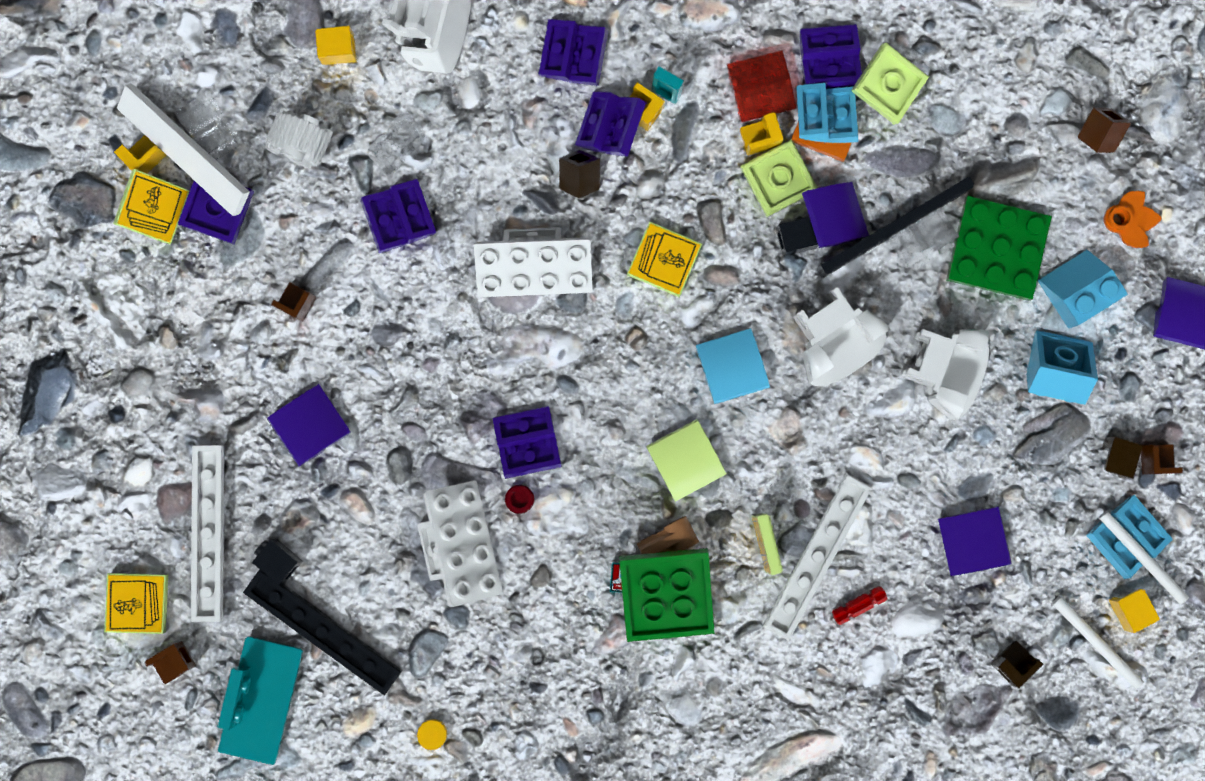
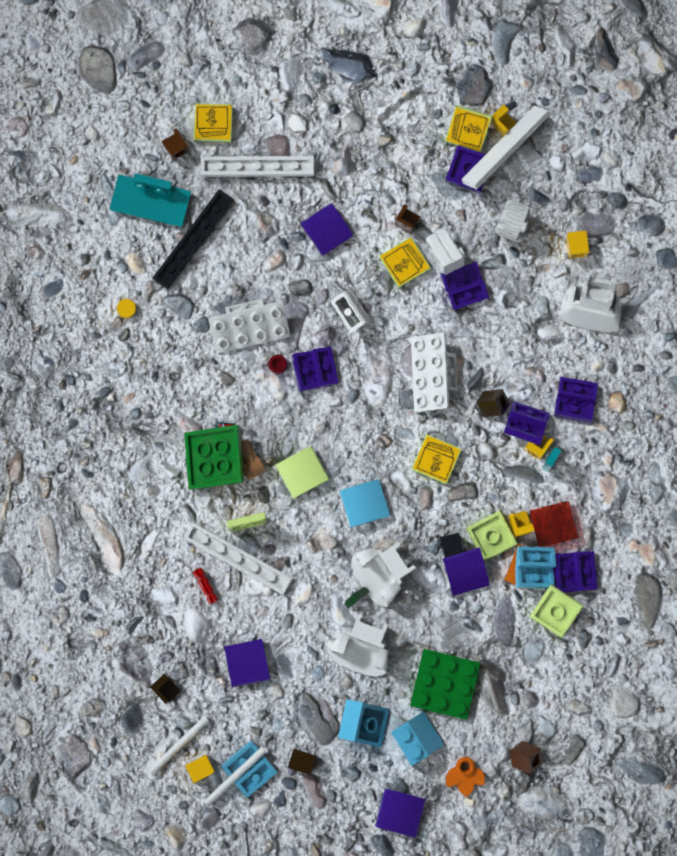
camera: 90 degrees right, 5 degrees down
(276, 560) = (239, 209): black brick -> none
(346, 242) = (445, 251): none -> white brick
(361, 306) = (404, 262): none -> yellow tile
(438, 386) = (350, 310): none -> white brick
(875, 377) = (356, 597): none -> dark green tile
(896, 226) = (452, 603): black tile -> none
(1159, 460) = (300, 790): reddish brown panel -> none

